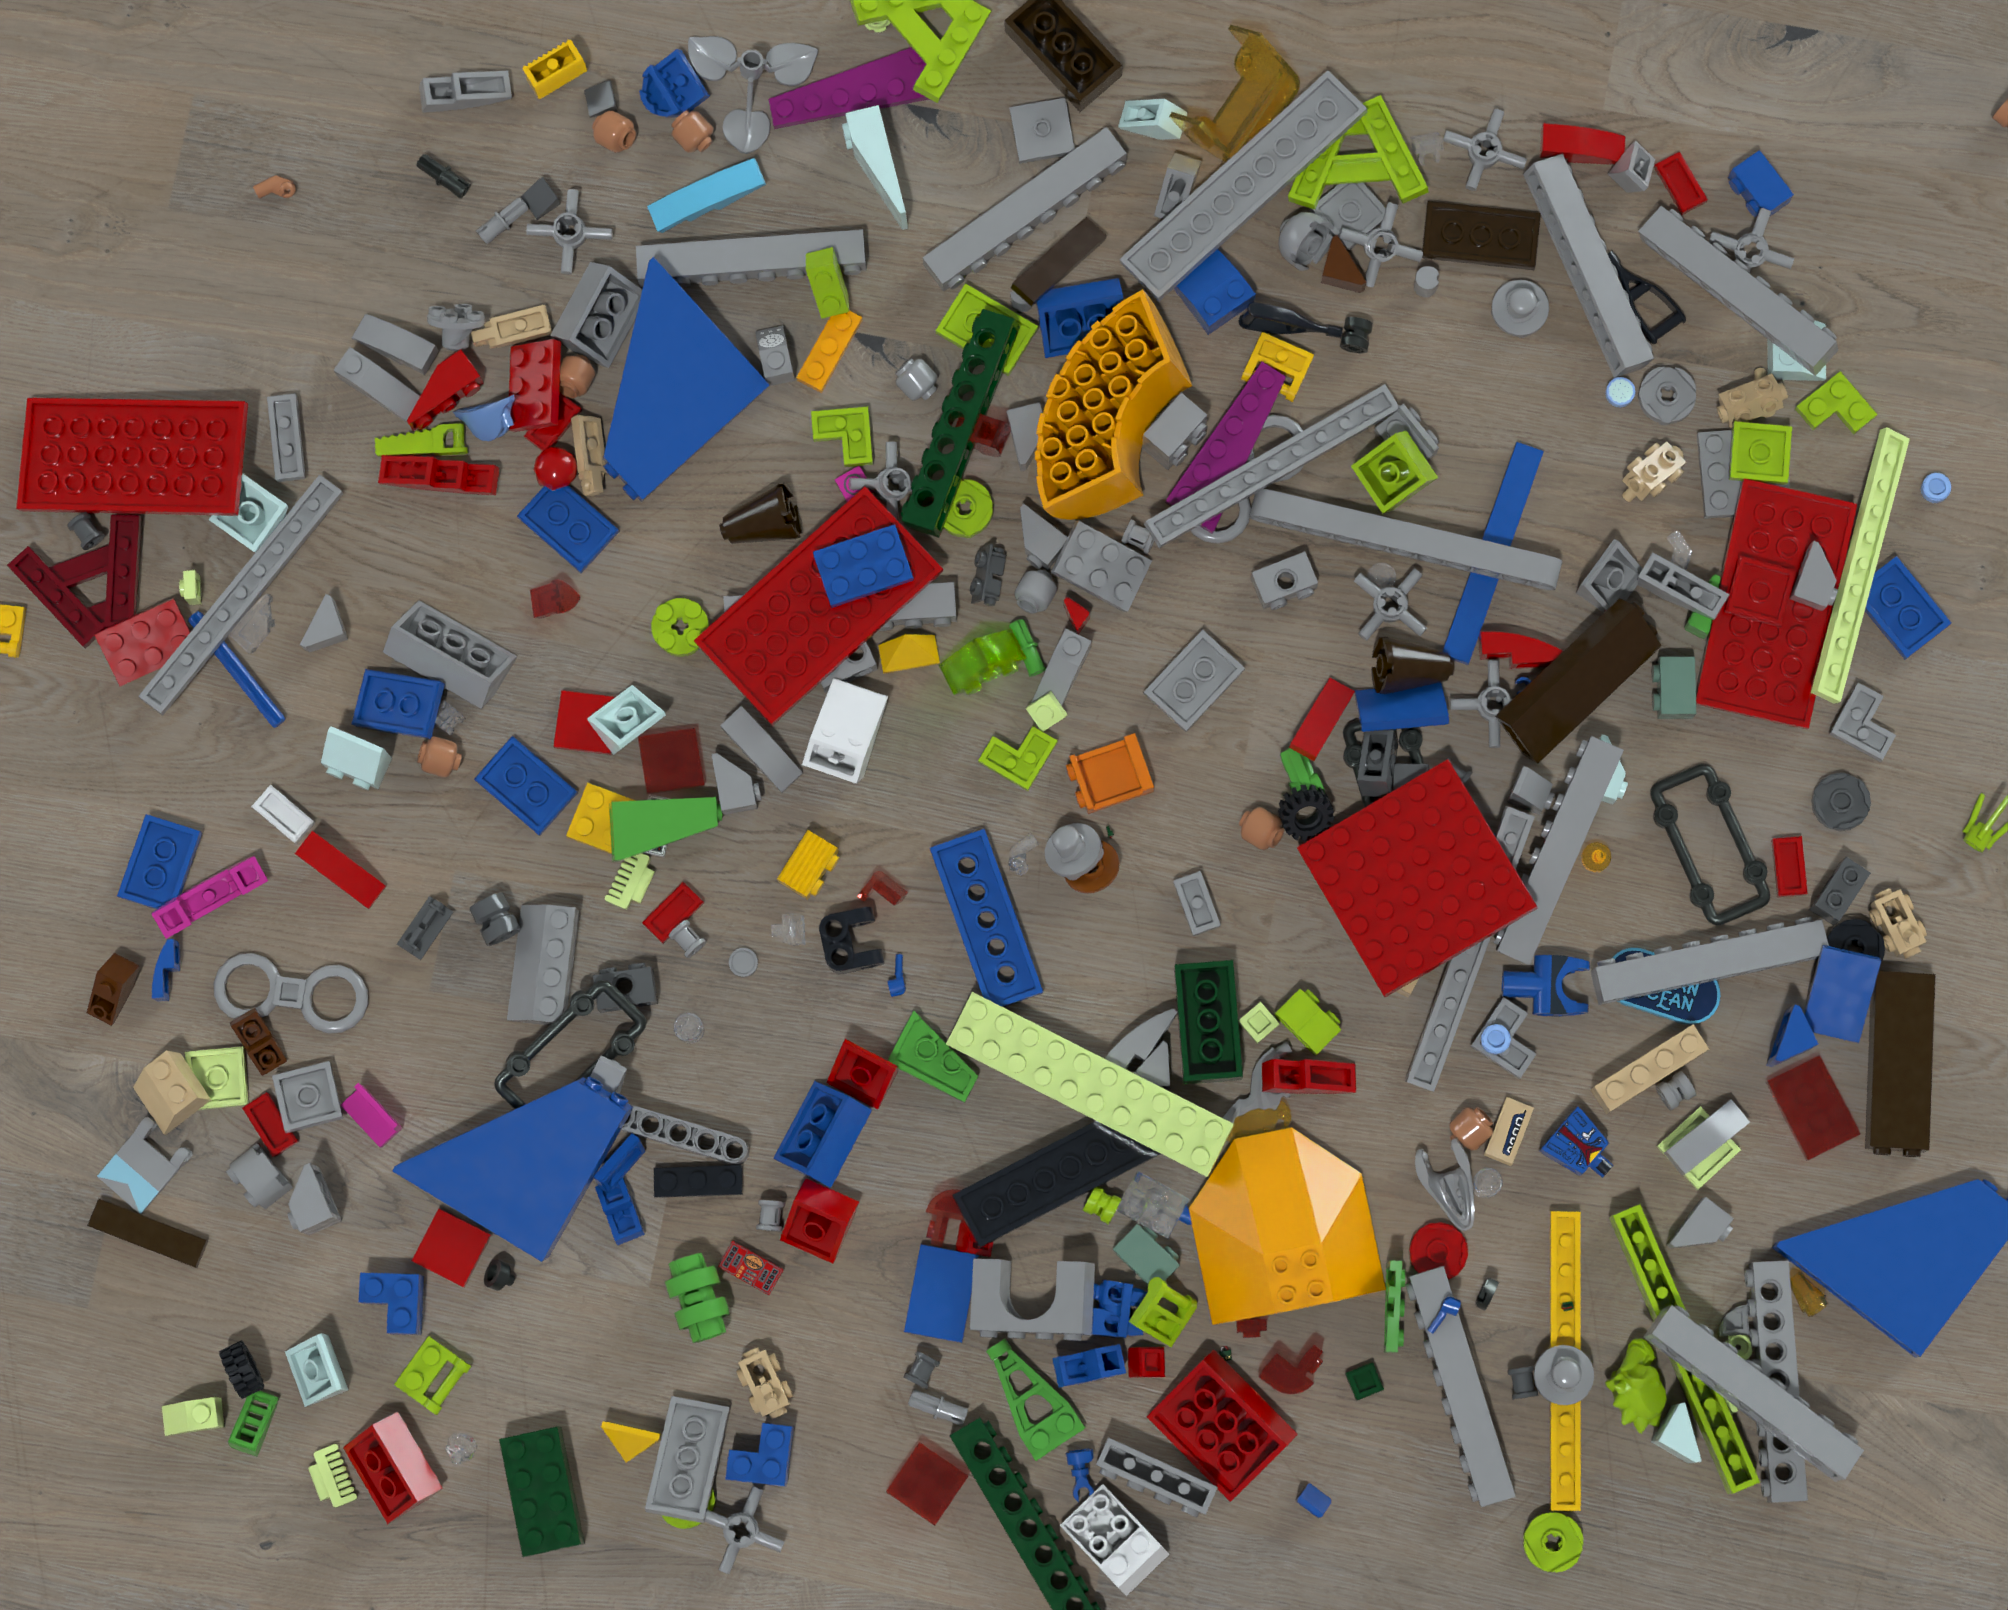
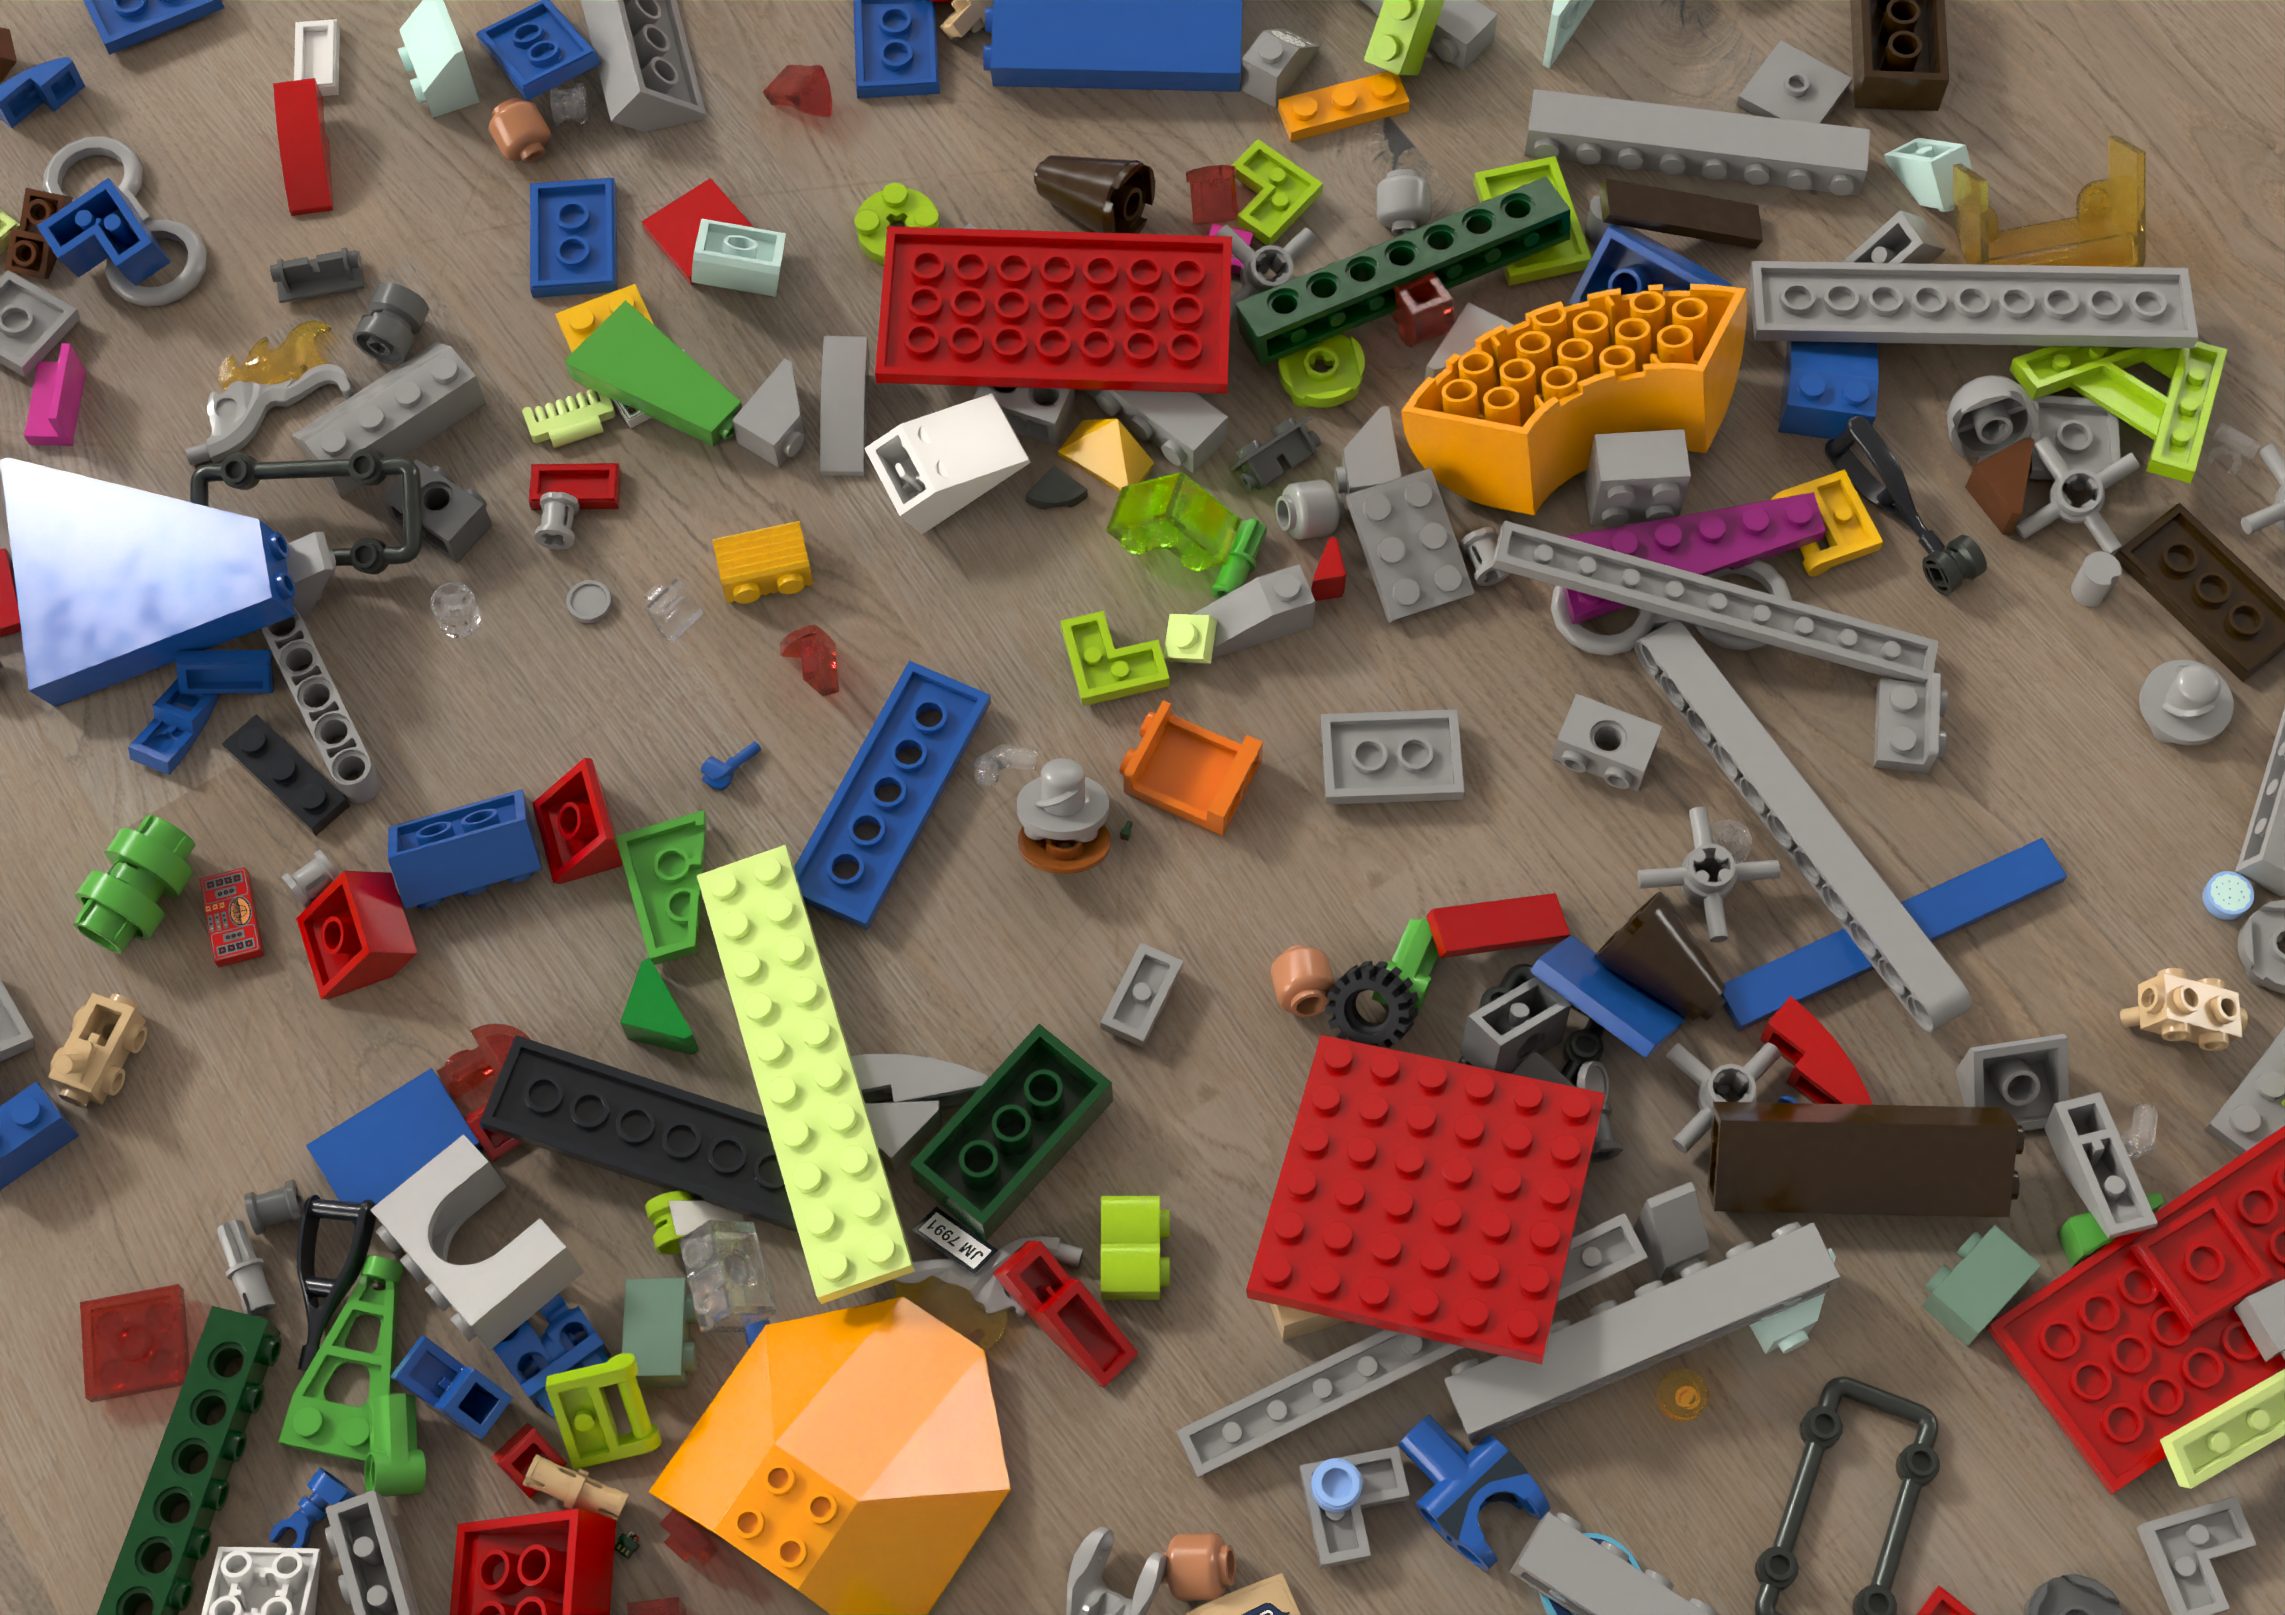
camera: 40 degrees right, 15 degrees down
(208, 896) = (152, 60): dark pink slope -> none
(303, 1006) = (102, 227): none -> blue brick
(461, 1006) = (261, 383): none -> light grey piece
(670, 761) = (740, 338): clear red plate -> none
(819, 462) = (1213, 194): none -> clear red tile
(831, 945) = (696, 665): black piece -> none
(863, 566) = (1143, 305): blue plate -> none
(904, 694) = (1056, 490): none -> pearl dark grey tile
(982, 1380) = (332, 1289): none -> black piece
(994, 1123) = (653, 1014): none -> green slope
(1096, 1418) = (394, 1461): none -> bright green piece
(1114, 1190) = (692, 1214): none -> white sticker
(1183, 1353) = (575, 1488): none -> tan pin
(1228, 1092) = (955, 1240): none -> sticker
(1258, 1022) = (1073, 1194): yellowish green plate -> none
(1394, 471) = (1857, 733): lime brick -> none
(1431, 753) = (1593, 1077): none -> light grey piece

